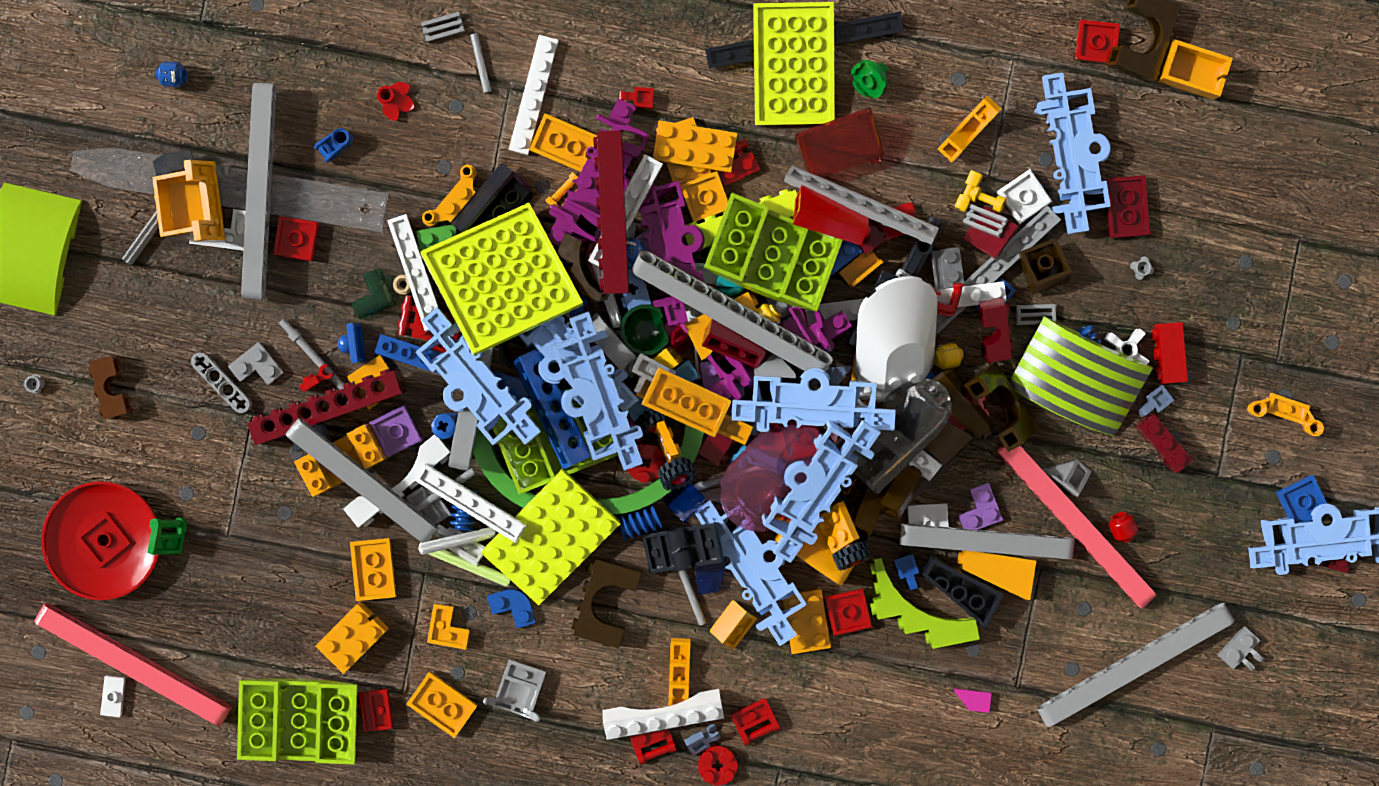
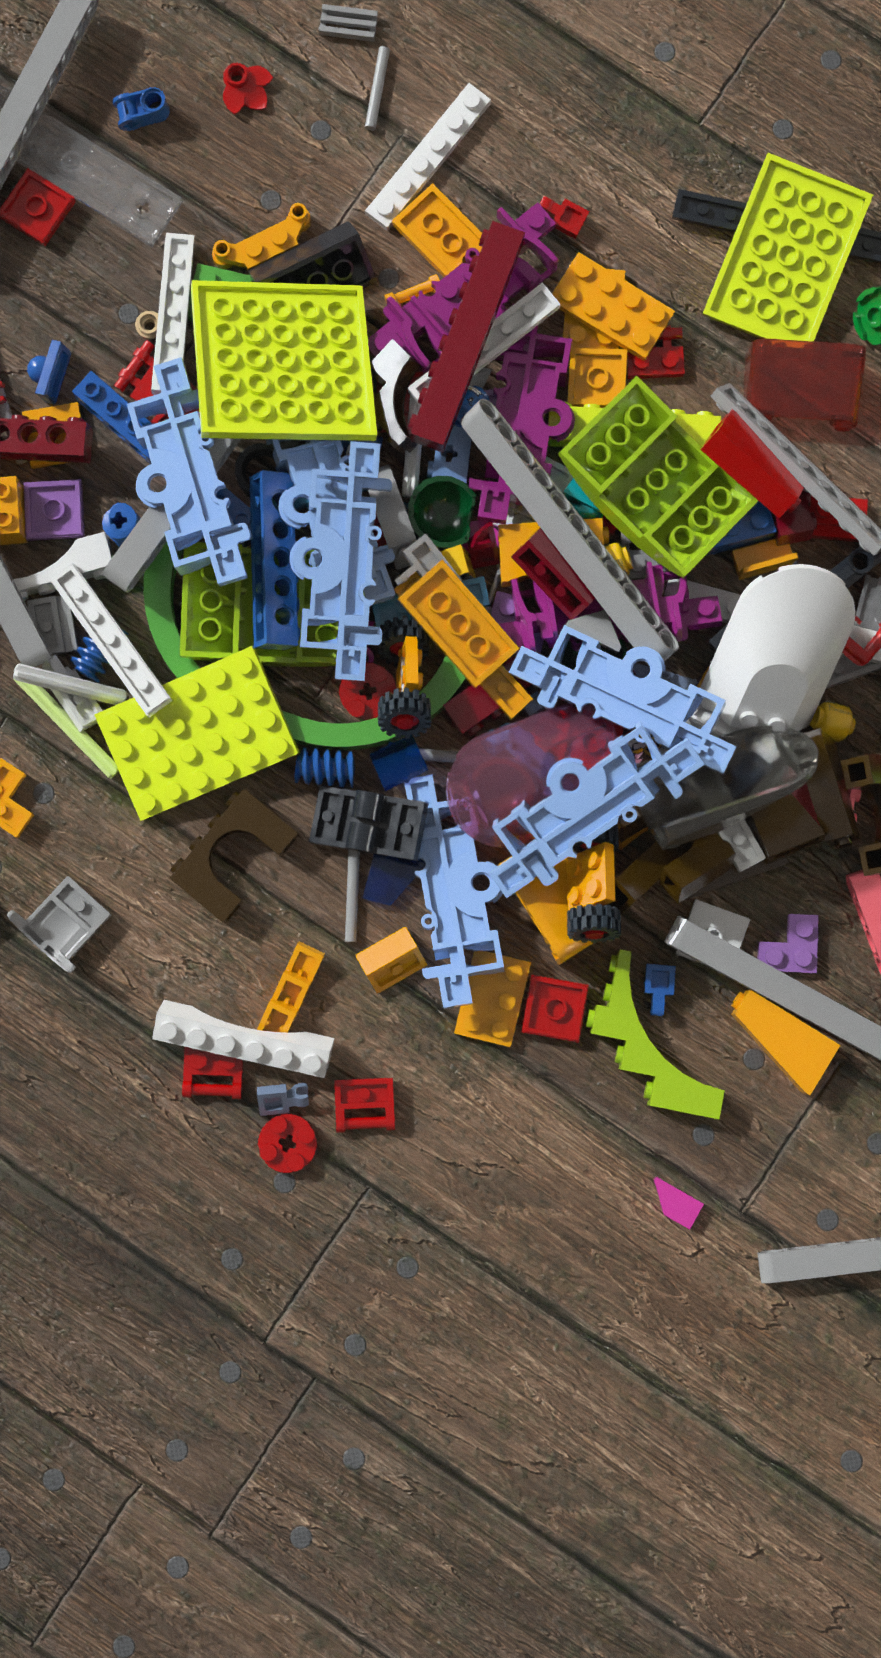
camera: 15 degrees right, 5 degrees down
(379, 297) = (111, 329): clear green brick -> none
(434, 497) = (68, 615): light grey bar -> none
(515, 601) = (112, 804): blue plate -> none
(970, 592) = (731, 1050): black wedge -> none

